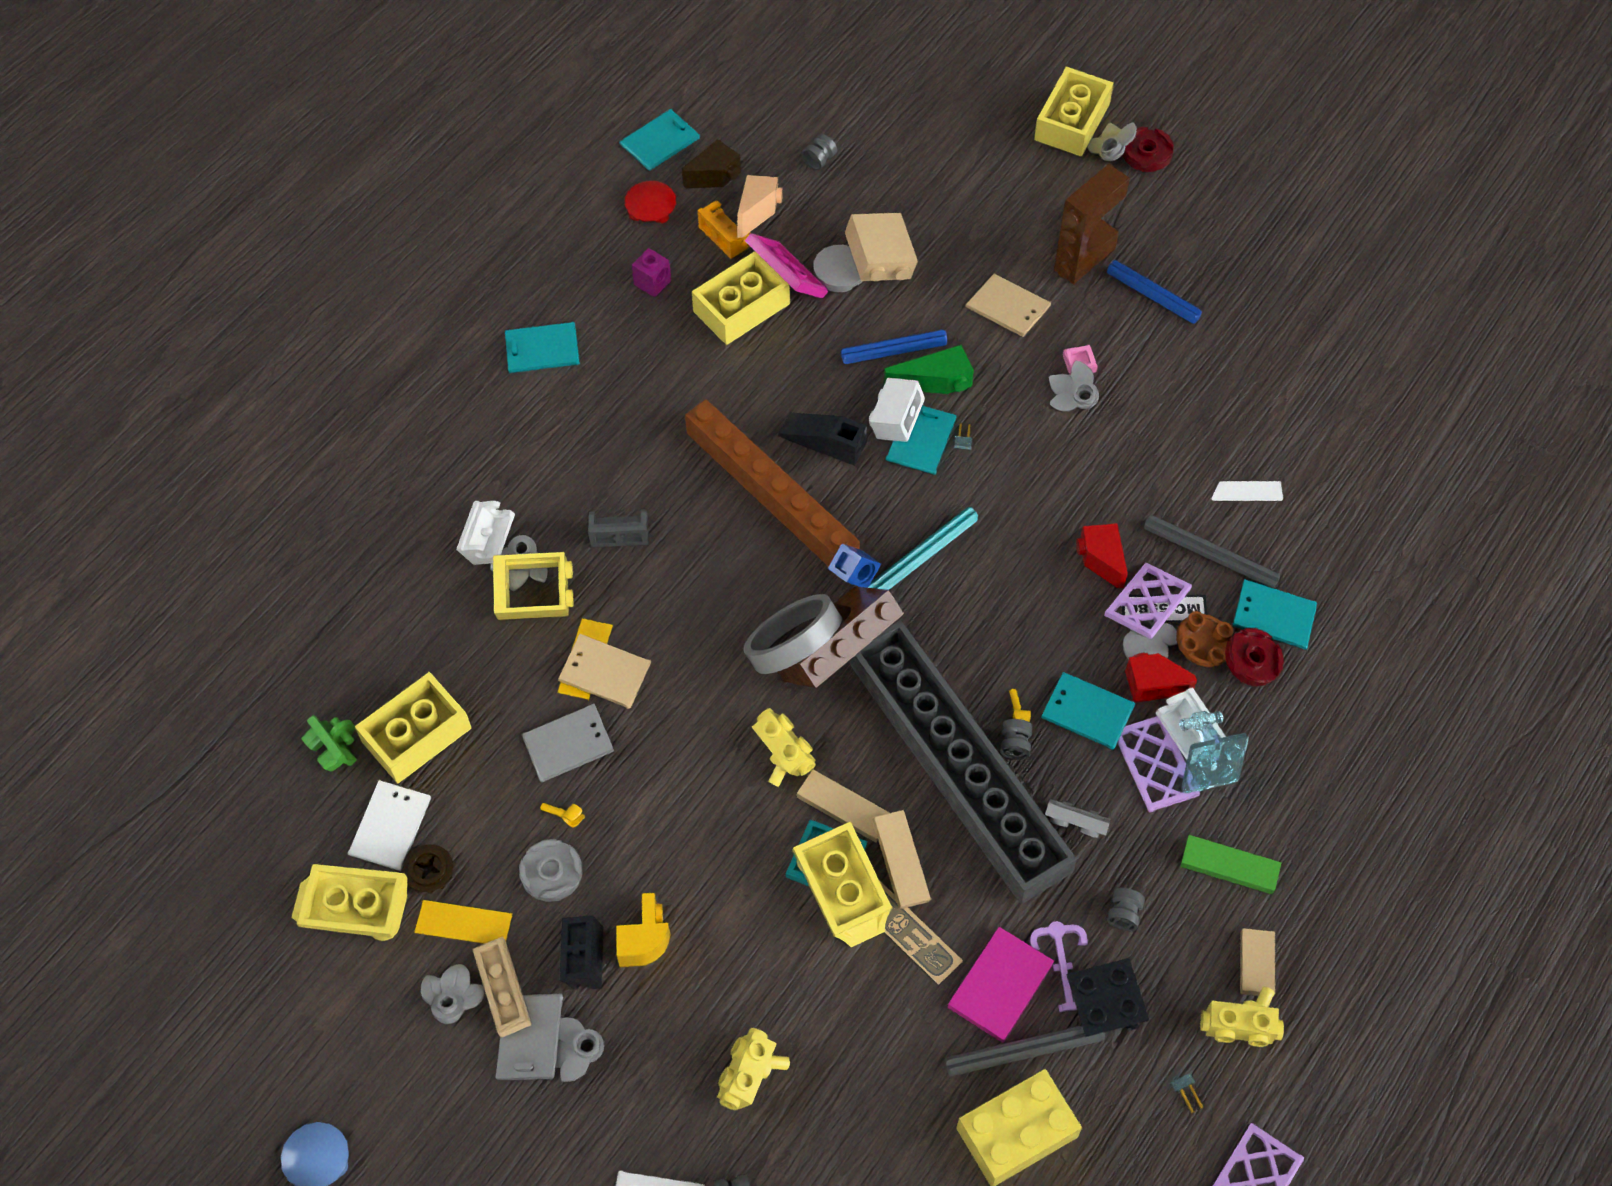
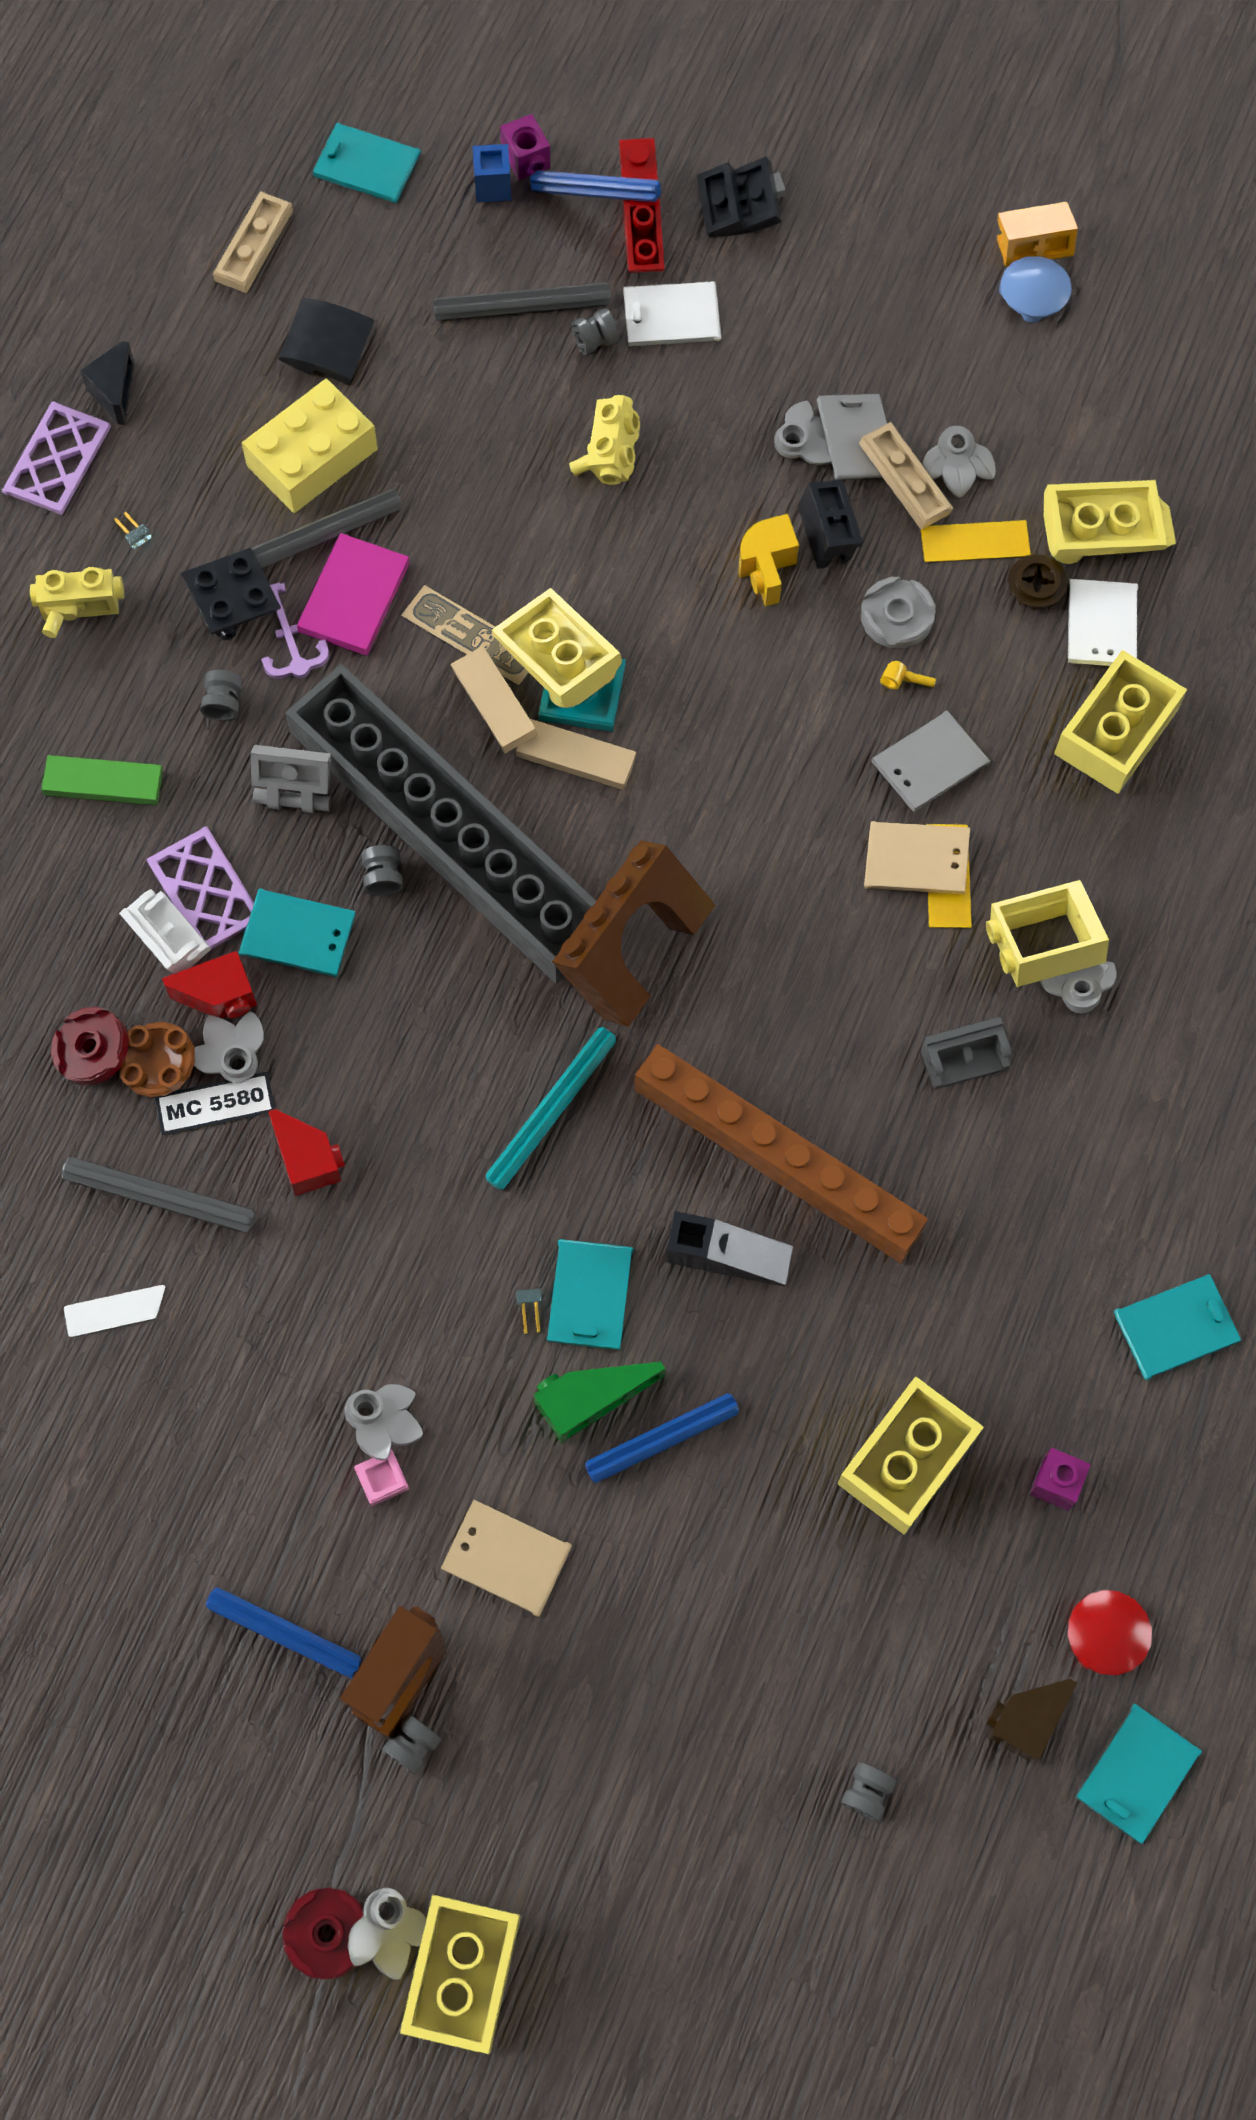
camera: 165 degrees right, 10 degrees up
(333, 738) = (1213, 694): bright green hips -> none
(485, 532) = (1137, 1000): white hinge -> none
(721, 230) = (975, 1598): light orange hinge -> none
(757, 202) = (936, 1648): light nougat slope -> none
(787, 265) = (857, 1528): dark pink tile -> none
(788, 751) = (665, 798): light yellow brick -> none
(801, 645) = (645, 908): light grey piece -> none
(836, 268) = (778, 1568): light grey tile -> none
(854, 566) = (634, 1039): blue brick -> none
(881, 246) = (721, 1604): tan brick -> none
(896, 409) = (633, 1313): white brick -> none
(1017, 712) = (381, 906): yellow hand -> none
(1133, 620) = (254, 1122): lavender window -> none
(1215, 759) = (149, 911): clear light blue plate -> none
(1257, 961) = (63, 676): tan tile -> none
(1275, 612) = (66, 1121): teal container -> none

